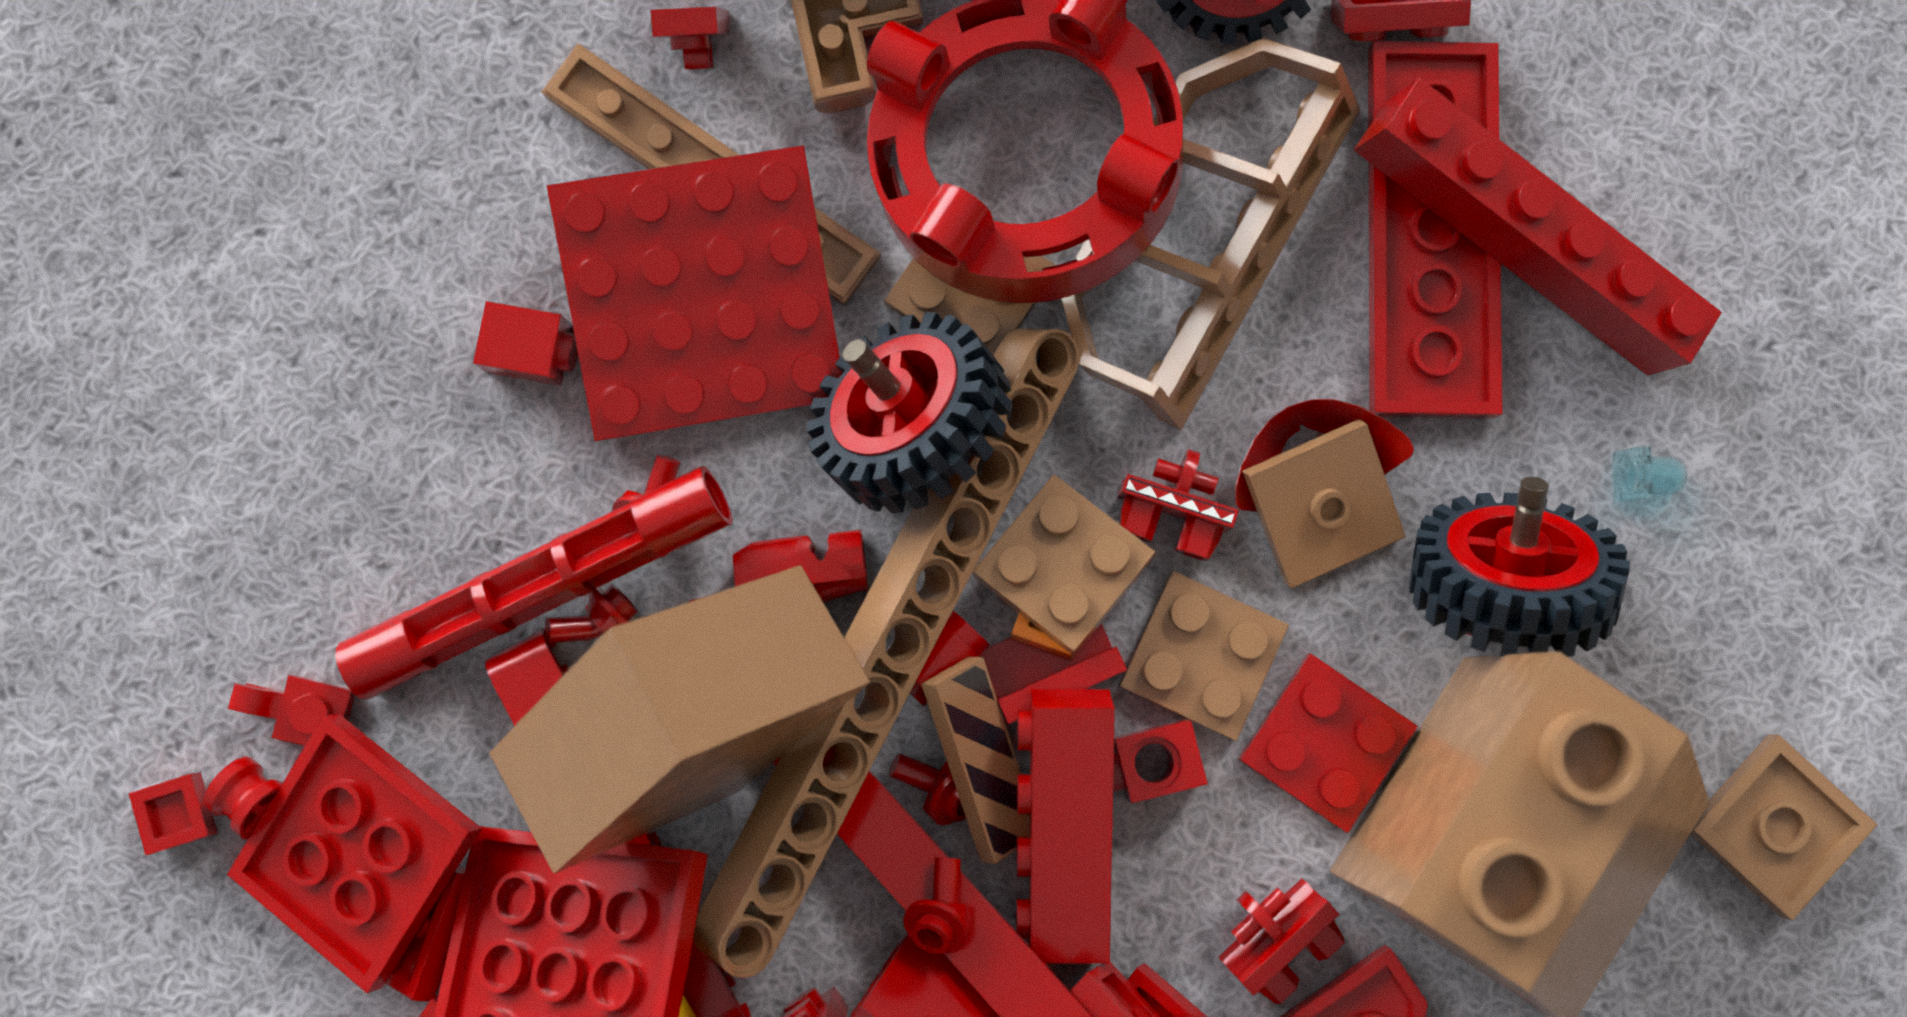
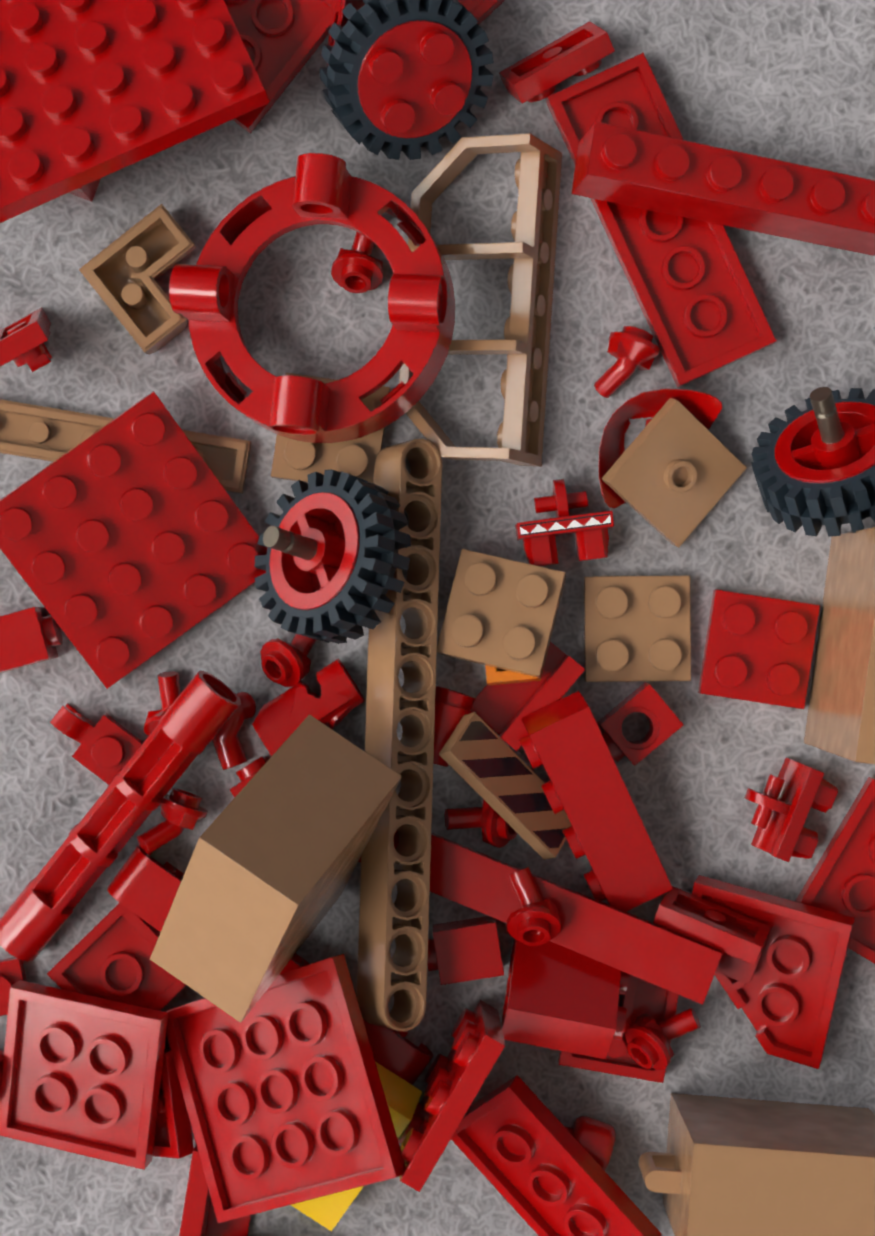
camera: 30 degrees left, 5 degrees up
(450, 749) = (117, 964): none -> red plate
(559, 501) = (103, 746): none -> red plate
(698, 557) = (227, 740): none -> red arm
(803, 508) = (288, 659): none -> red plate
(844, 921) = (465, 950): none -> red brick
(1086, 123) = (358, 266): none -> red plate
(1340, 350) = (634, 351): none -> red plate

